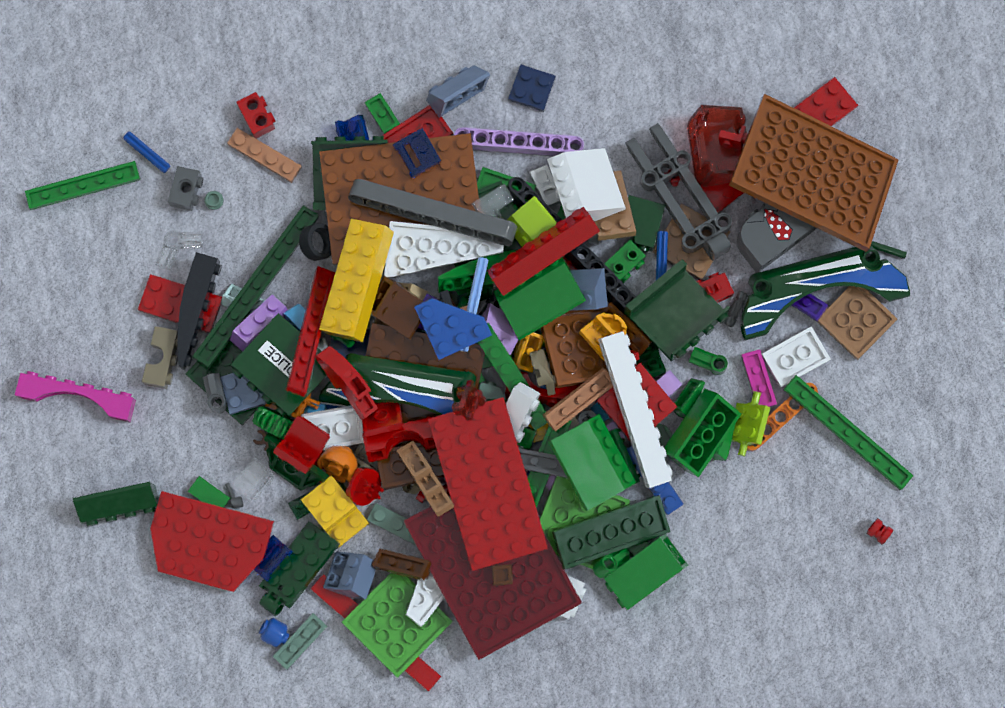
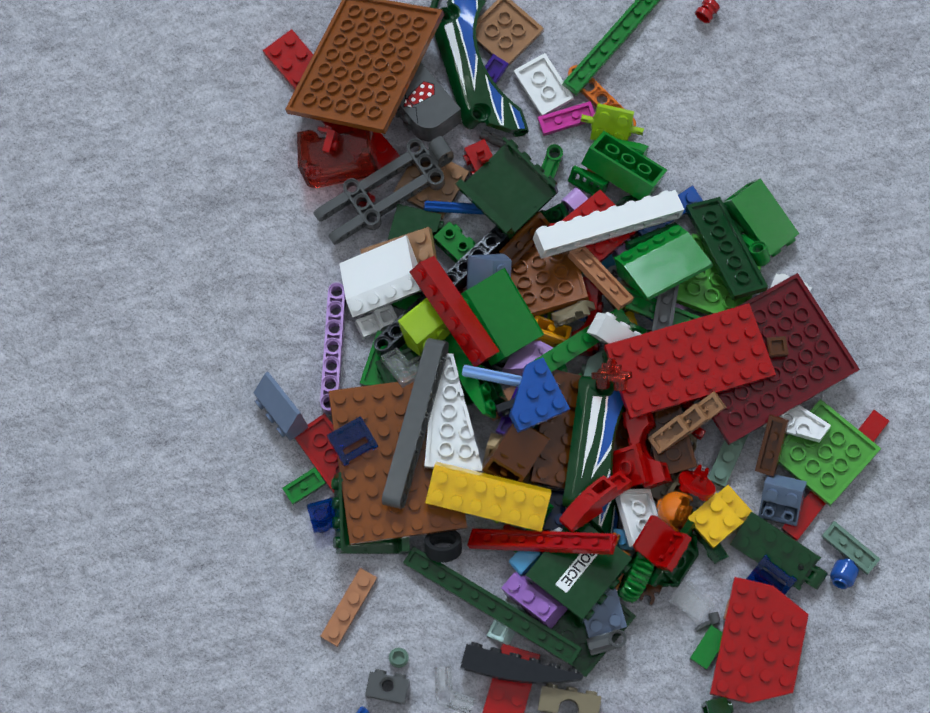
camera: 90 degrees left, 5 degrees down
(253, 116) = (309, 621): red brick -> none
(532, 88) = (274, 338): dark blue plate -> none
(600, 327) = (528, 259): light orange slope -> none

